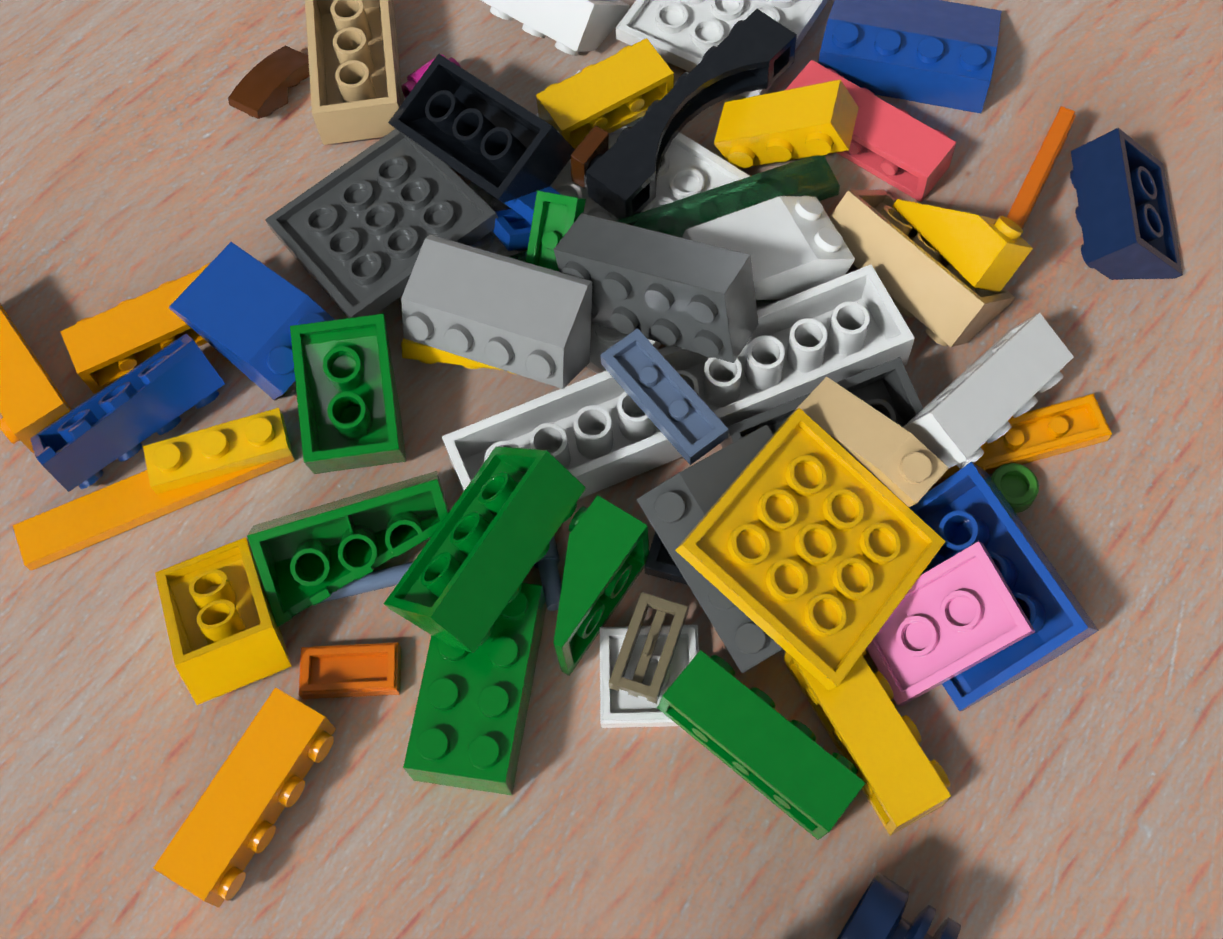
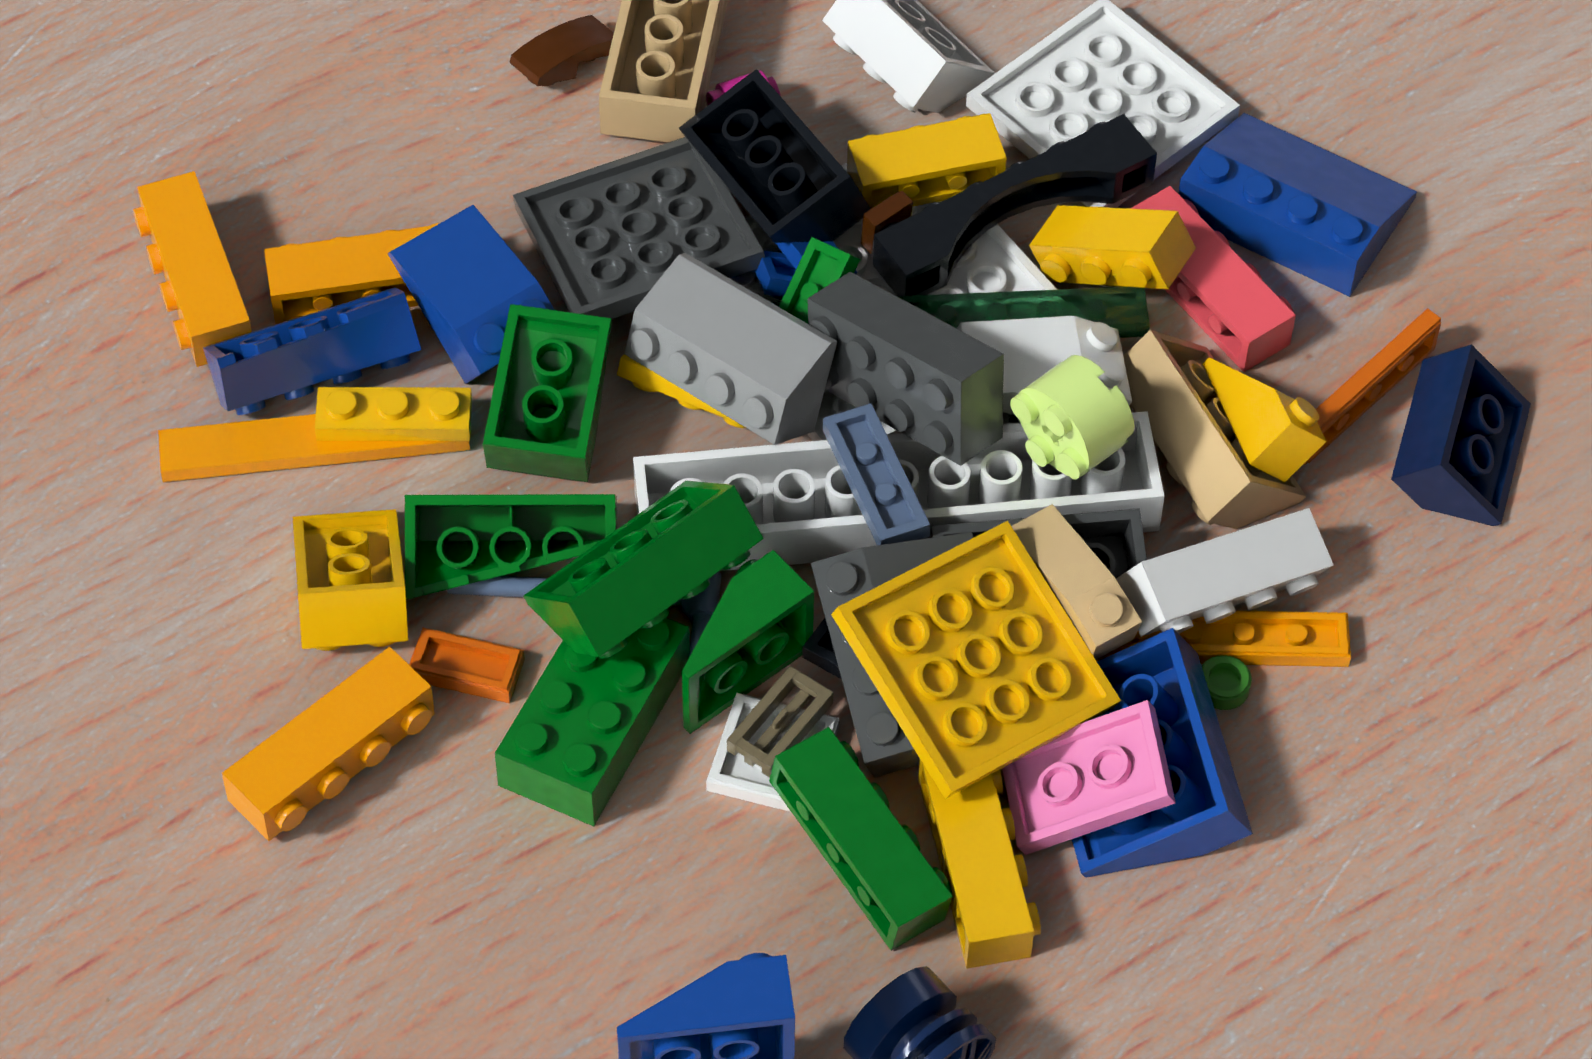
camera: 10 degrees right, 10 degrees down
(822, 292) = (1073, 417): none -> yellowish green brick

